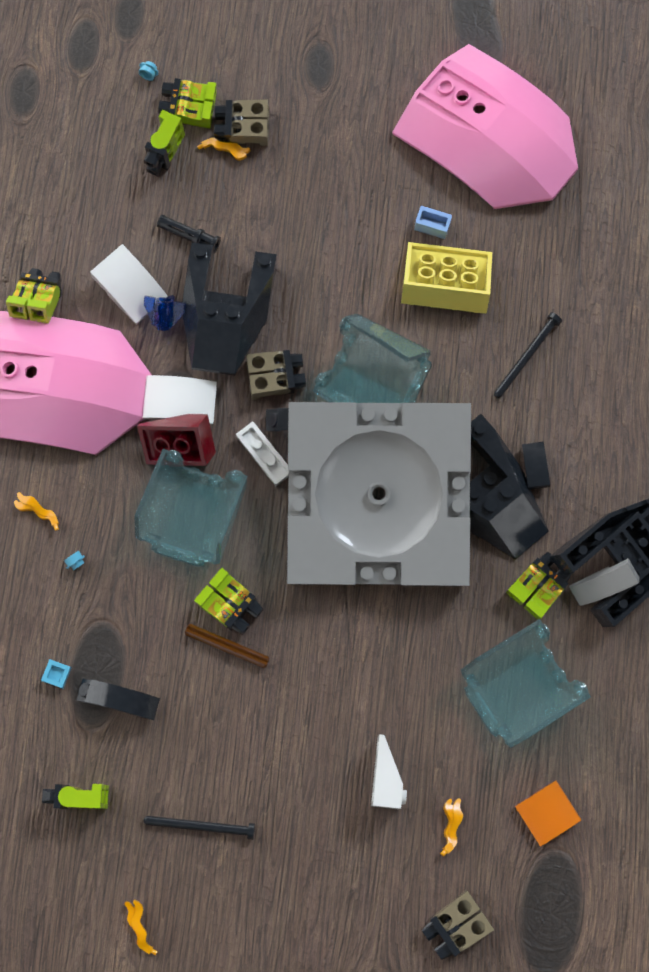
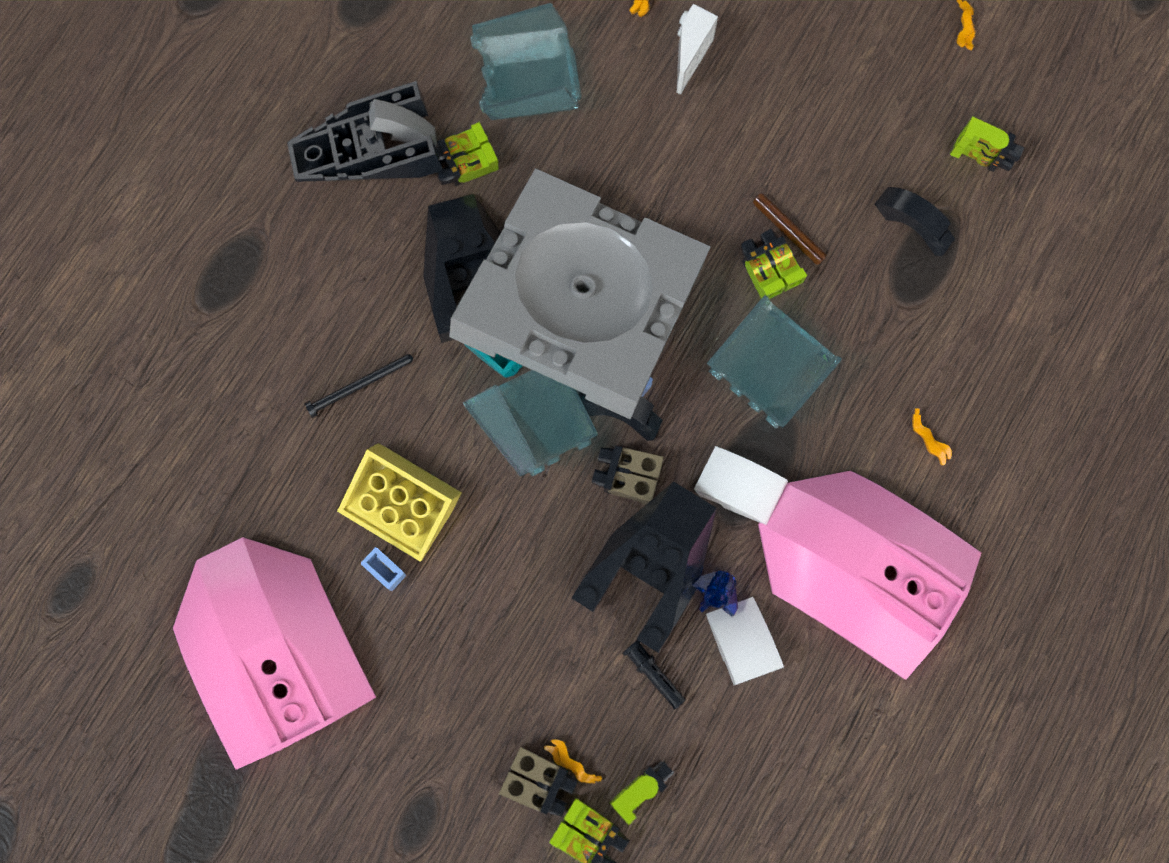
camera: 155 degrees left, 0 degrees up
(35, 294) = (852, 668): lime hips -> none
(56, 674) = (966, 269): medium azure plate -> none
(74, 560) = (909, 370): medium azure plate -> none
(184, 433) = (757, 441): dark red slope -> none
(201, 826) = (877, 83): black bar -> none
(263, 453) = (675, 396): white plate -> none
(536, 465) = (408, 269): black slope -> none

